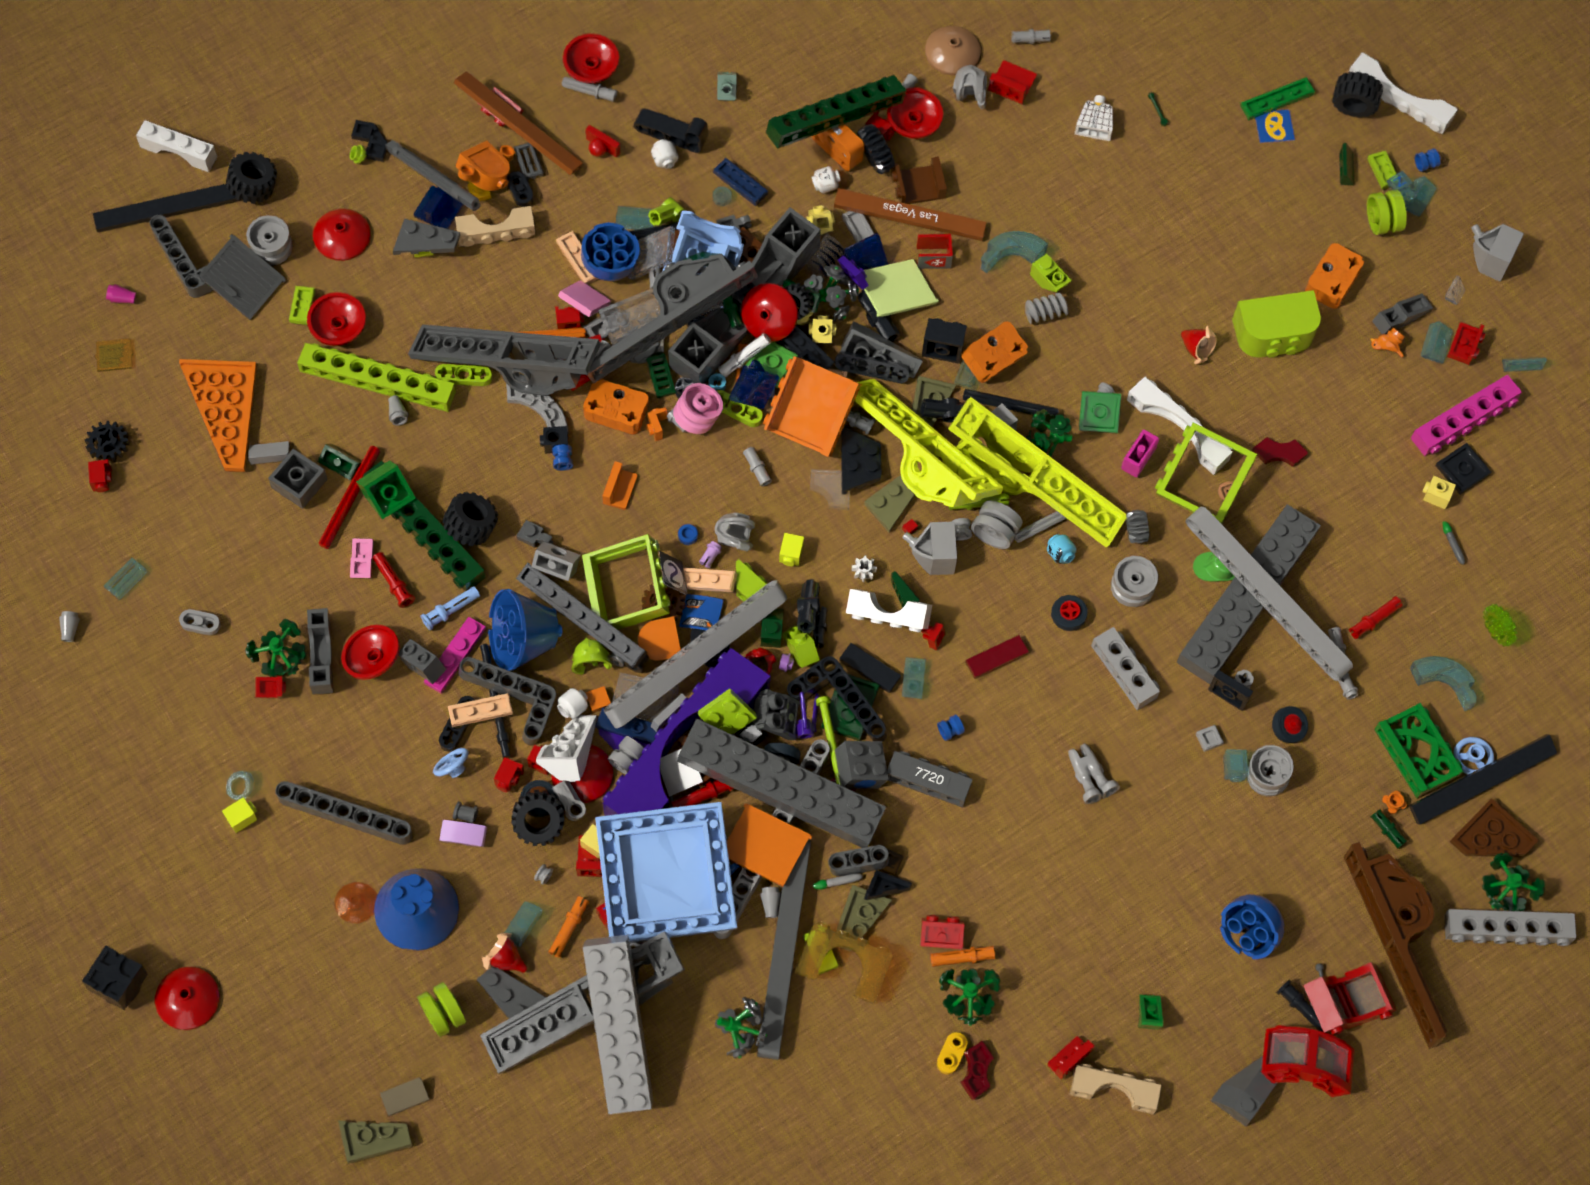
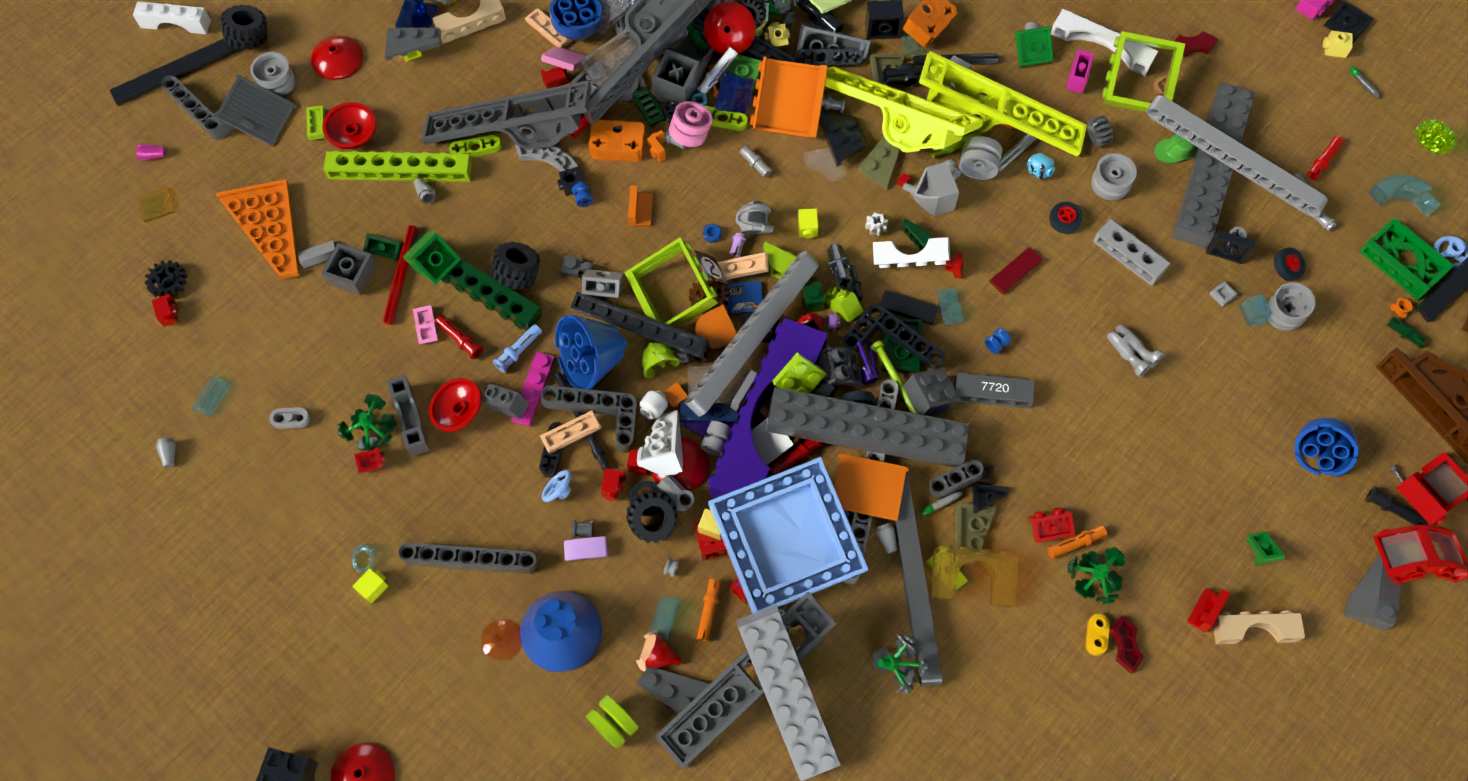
camera: 10 degrees left, 0 degrees up
(1058, 427) = (1004, 72): dark green plant -> none

